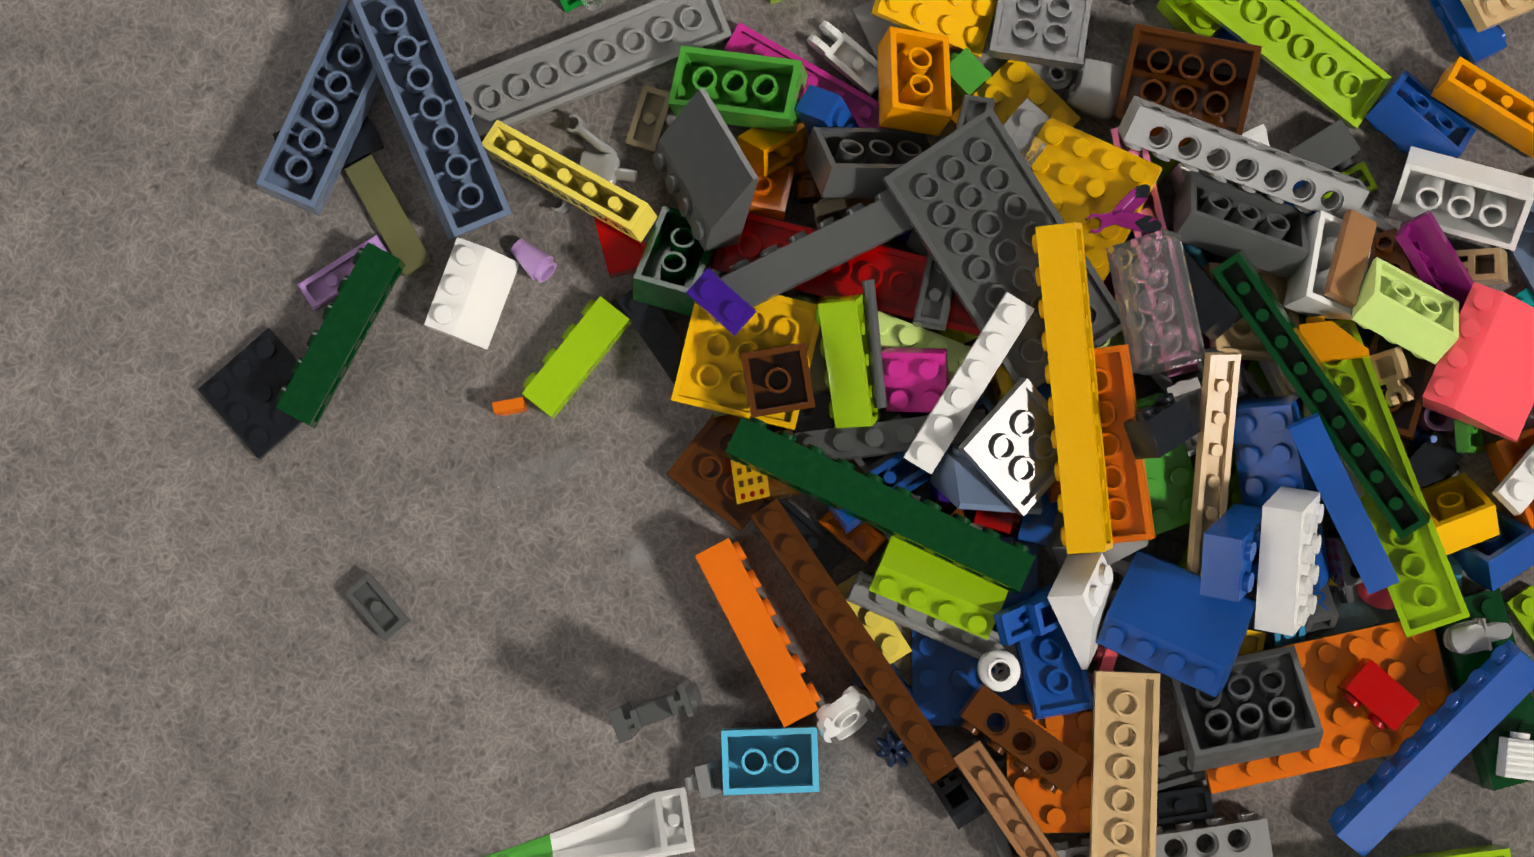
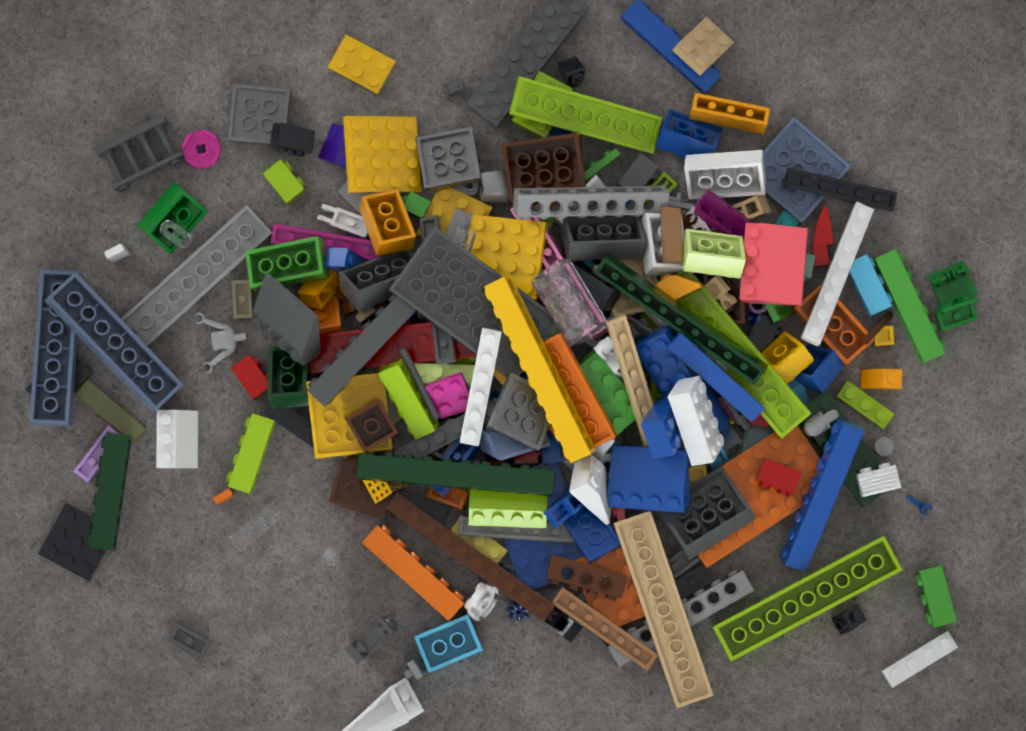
camera: 25 degrees left, 0 degrees up
(535, 262) = (205, 406): lavender cone -> none
(569, 181) = (209, 353): light yellow brick -> none
(721, 302) = (322, 393): dark purple plate -> none
(1010, 670) = (560, 549): white head -> none
(1123, 213) = (533, 257): magenta piece -> none
(1161, 426) = (596, 372): black brick -> none
(1284, 109) = (596, 167): none -> bright green plate

